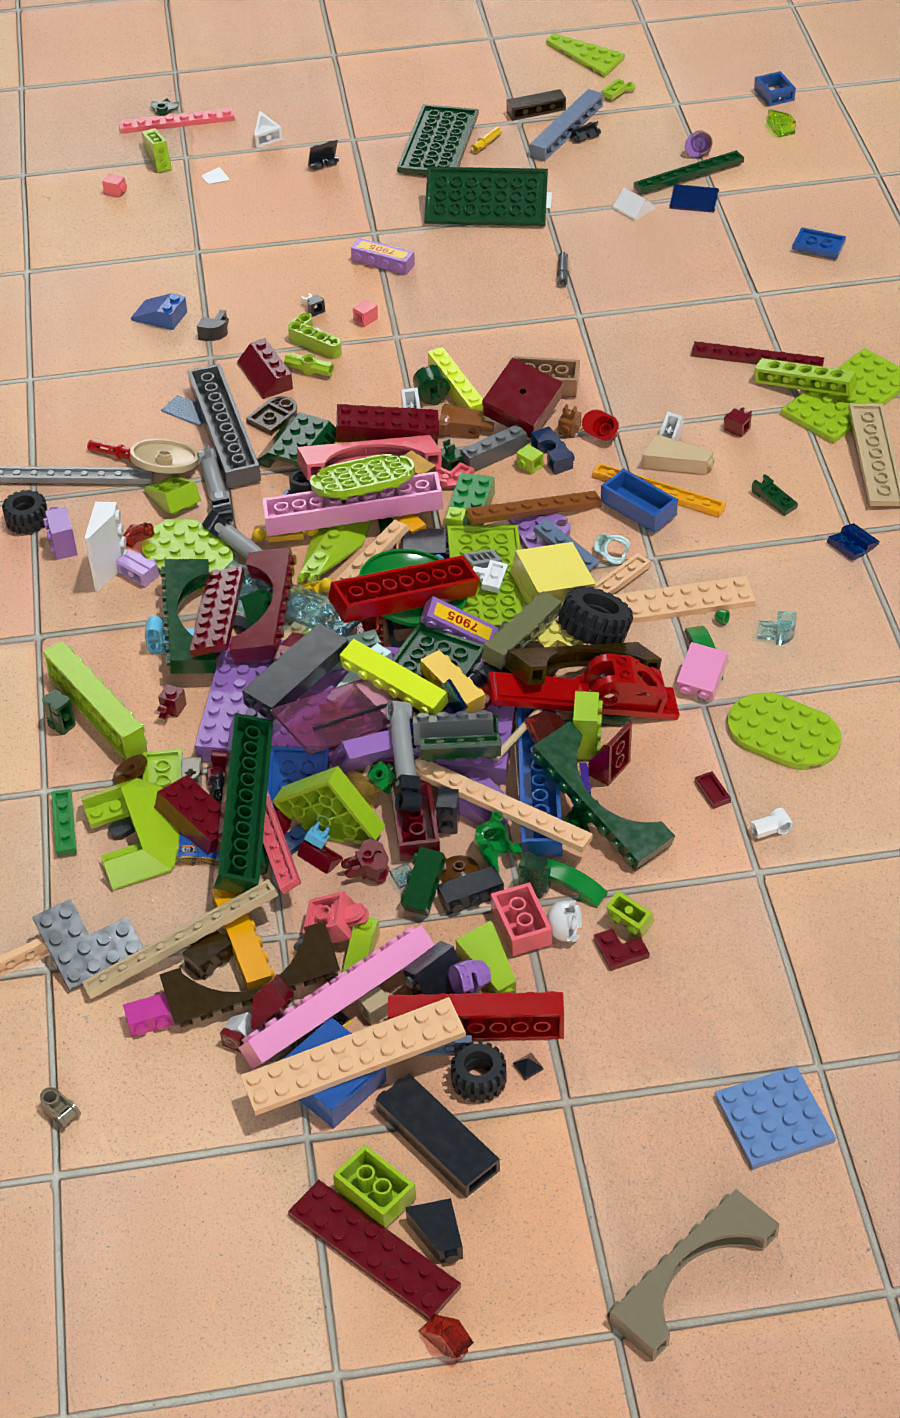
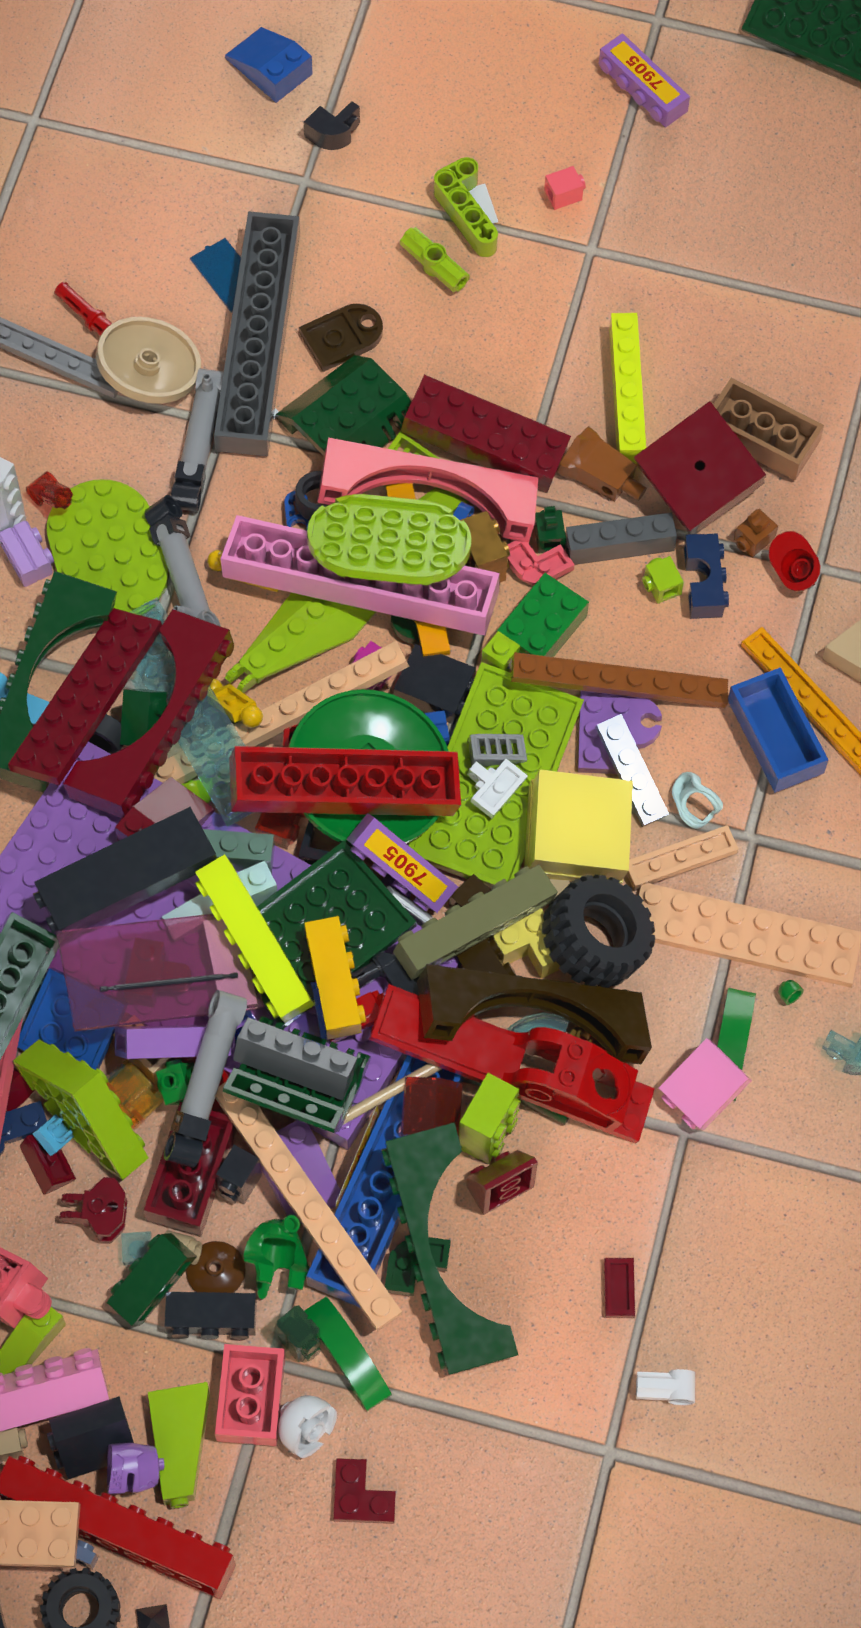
camera: 20 degrees right, 20 degrees up
(174, 494) = (132, 433): lime slope -> none
(265, 369) = (367, 243): dark red slope -> none
(315, 304) = (499, 139): black piece -> none
(410, 398) = (542, 401): white slope -> none
(431, 384) = (586, 379): dark green brick -> none
(584, 774) = (448, 1204): dark purple tile -> none
(629, 913) = (395, 1452): lime brick -> none
(784, 730) = (771, 1231): lime plate -> none

